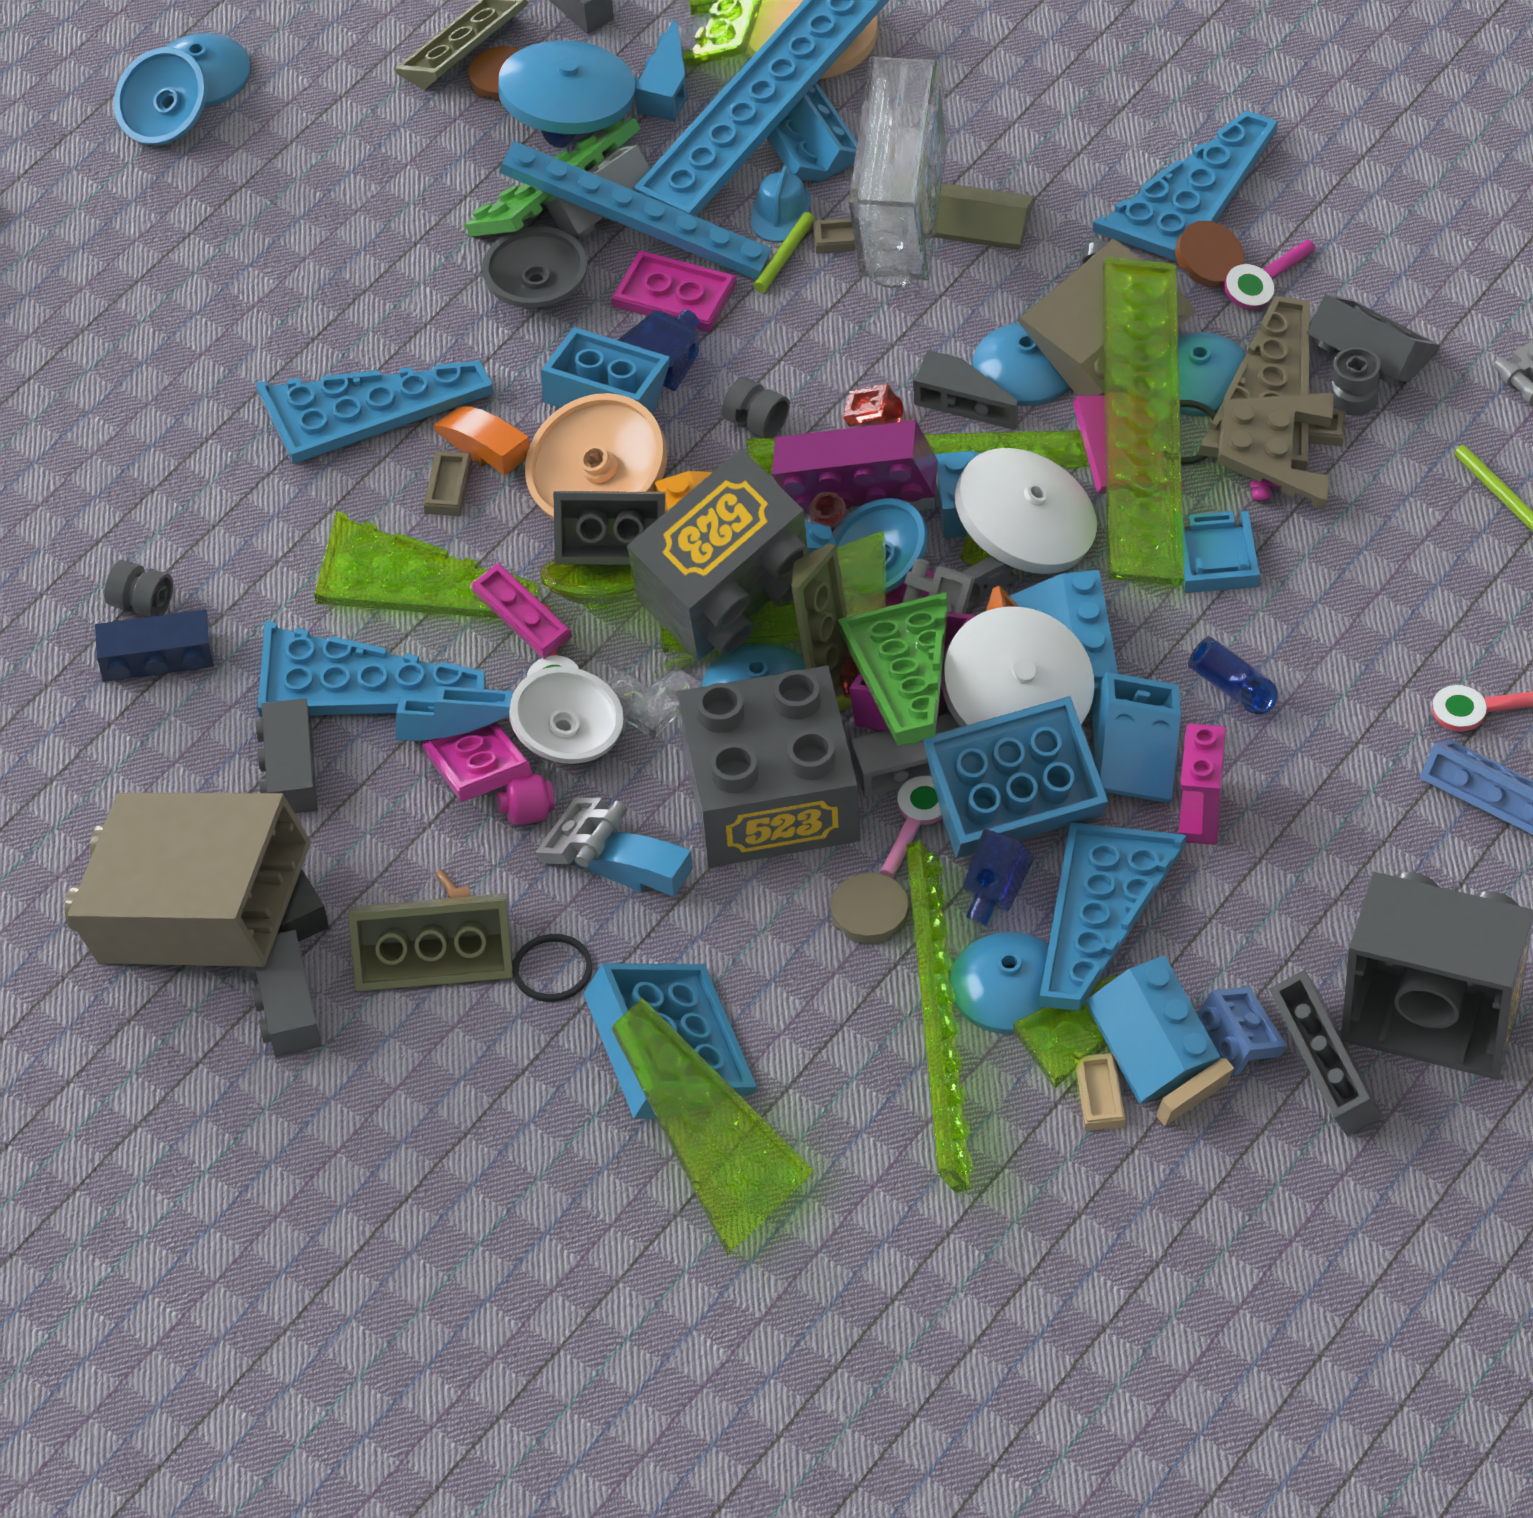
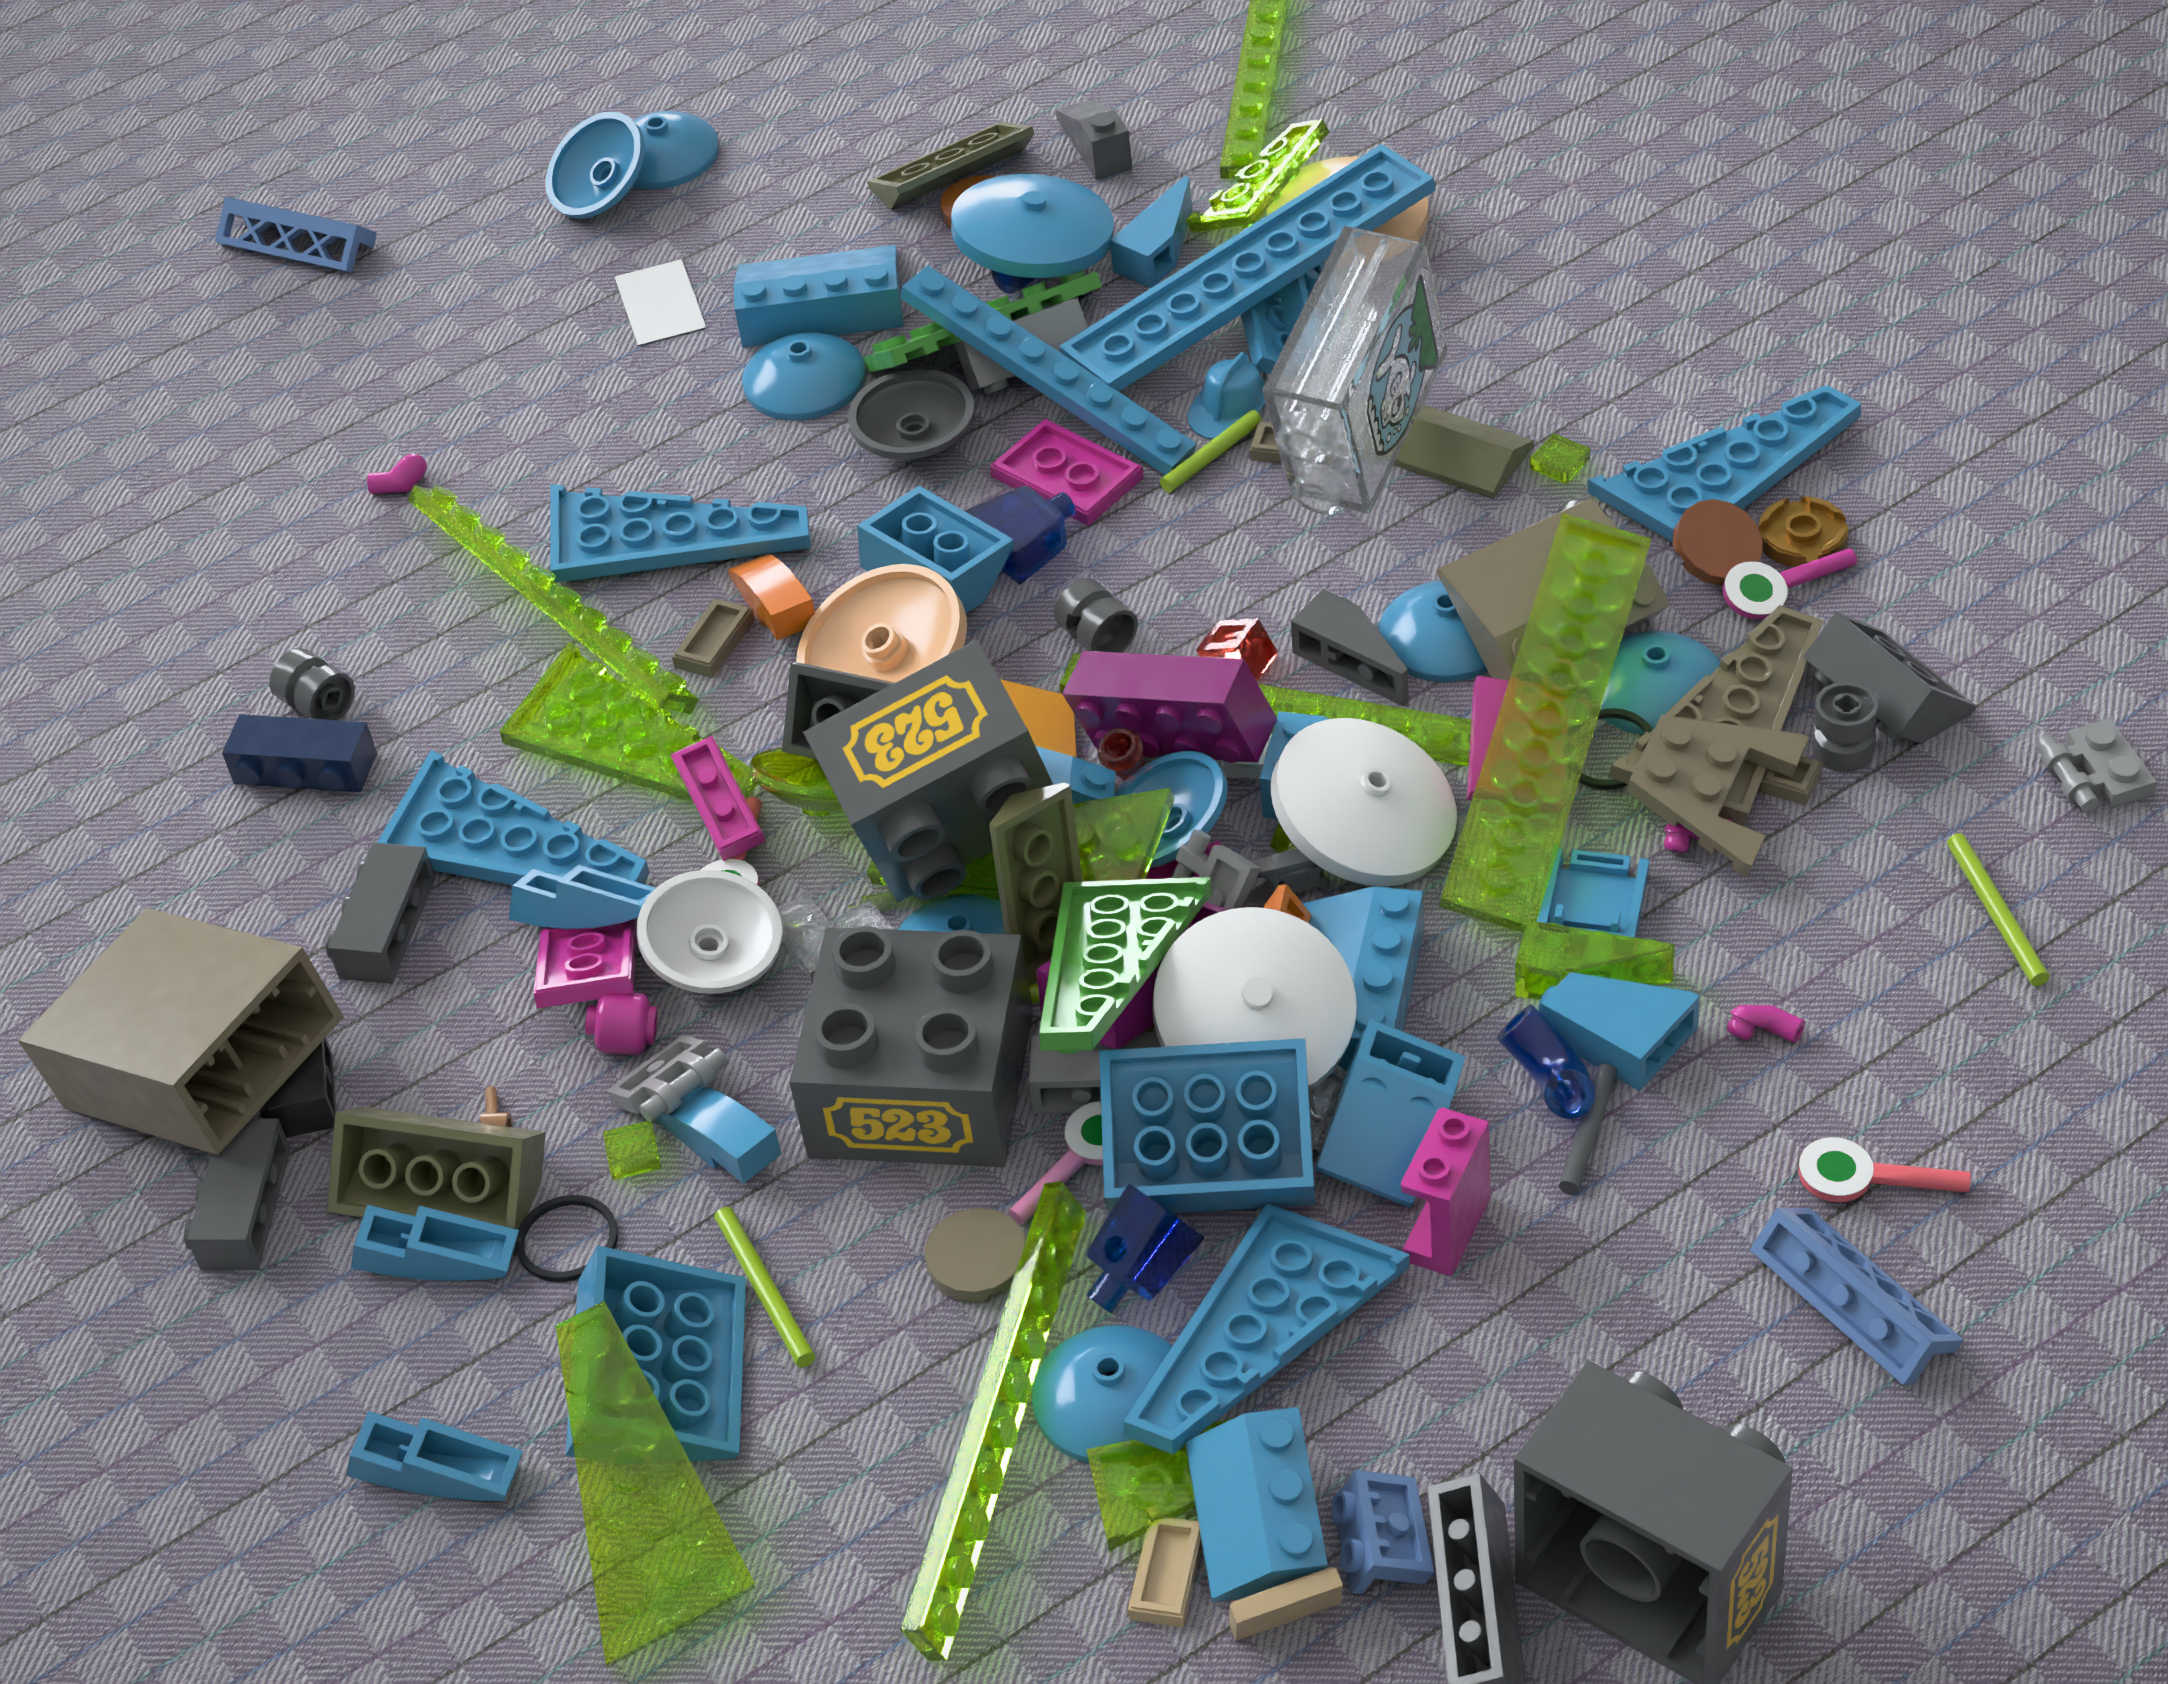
camera: 20 degrees right, 5 degrees down
(118, 401) = (400, 478): none -> dark pink arm
(263, 206) = (660, 302): none -> white sticker
(313, 480) = (556, 601): none -> clear neon green plate
(402, 176) = (818, 294): none -> dark azure slope
(419, 249) = (803, 376): none -> dark azure dish
(456, 996) = (432, 1246): none -> dark azure slope
(533, 1146) = (432, 1460): none -> dark azure slope
(573, 891) = (632, 1150): none -> clear neon green tile
(721, 967) = (764, 1287): none -> lime bar
(1060, 207) = (1559, 458): none -> clear neon green tile
(1228, 599) = (1554, 950): none -> clear neon green slope
(1267, 232) = (1802, 530): none -> pearl gold tile
(1273, 637) = (1621, 1022): none -> dark azure slope
(1275, 724) = (1587, 1131): none -> dark grey bar
(1374, 610) = (1767, 1017): none -> dark pink arm

